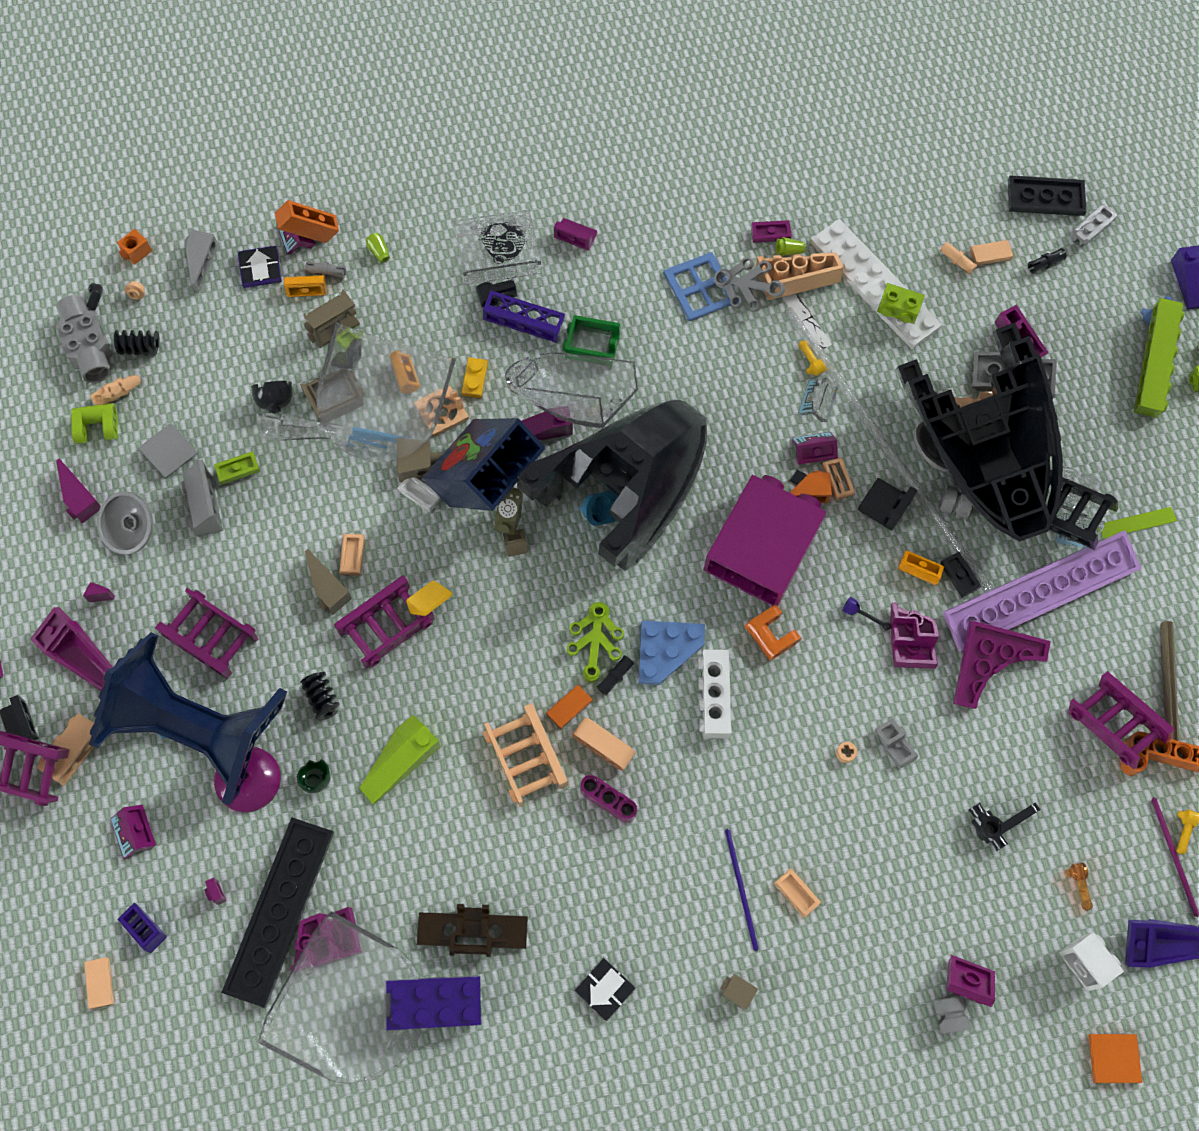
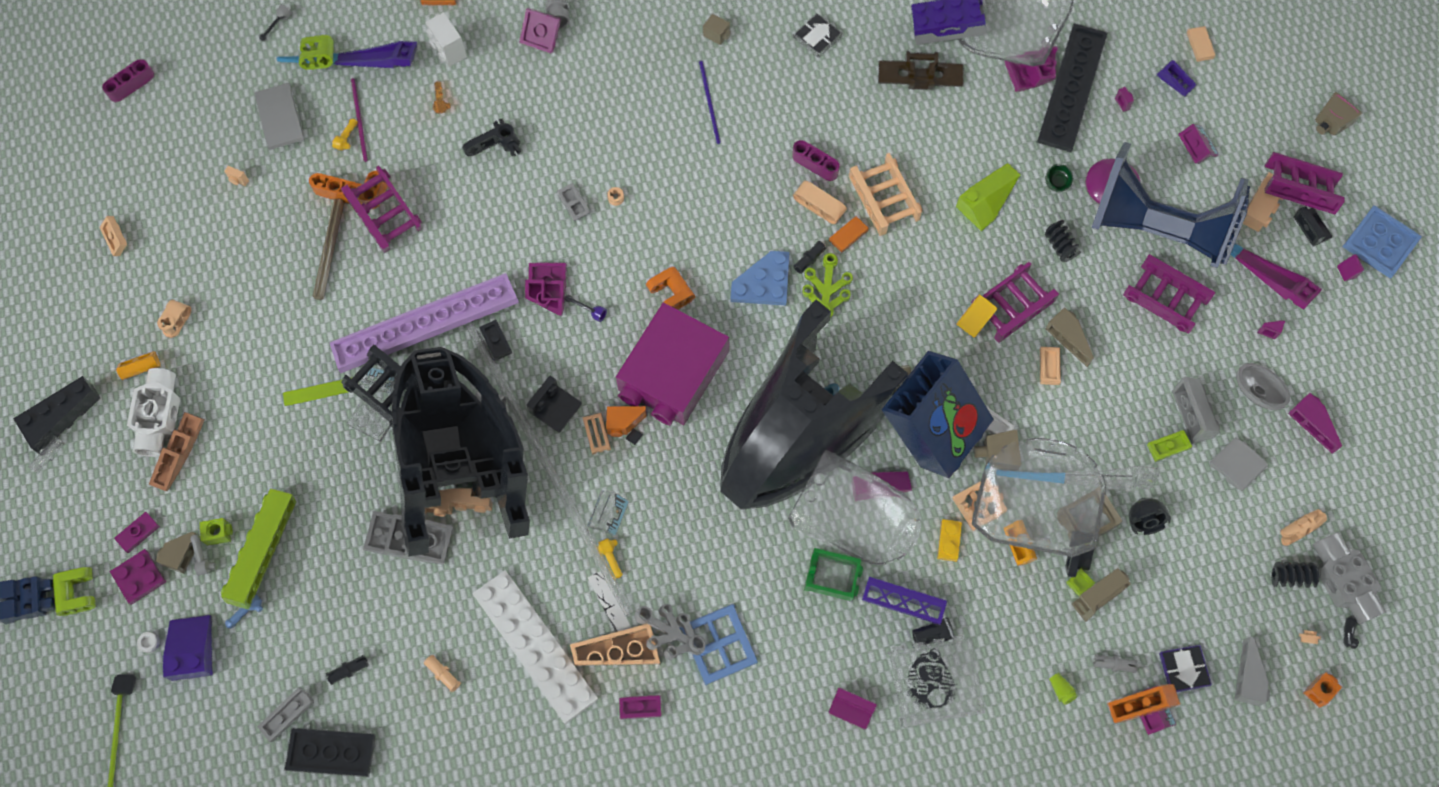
camera: 175 degrees left, 0 degrees up
(92, 415) = (1326, 498): lime connector -> none
(305, 286) = (1134, 643): light orange brick -> none
(718, 661) = (724, 213): white brick -> none
(789, 247) = (622, 687): lime cone -> none
(797, 893) = (665, 96): light nougat tile -> none
(815, 447) = (616, 464): magenta panel -> none
(900, 303) = (514, 603): lime brick -> none
(920, 567) = (531, 345): light orange brick -> none
(988, 652) = (482, 269): magenta plate -> none
(991, 252) = (404, 682): light nougat tile -> none
(1014, 315) = (394, 573): magenta slope -> none

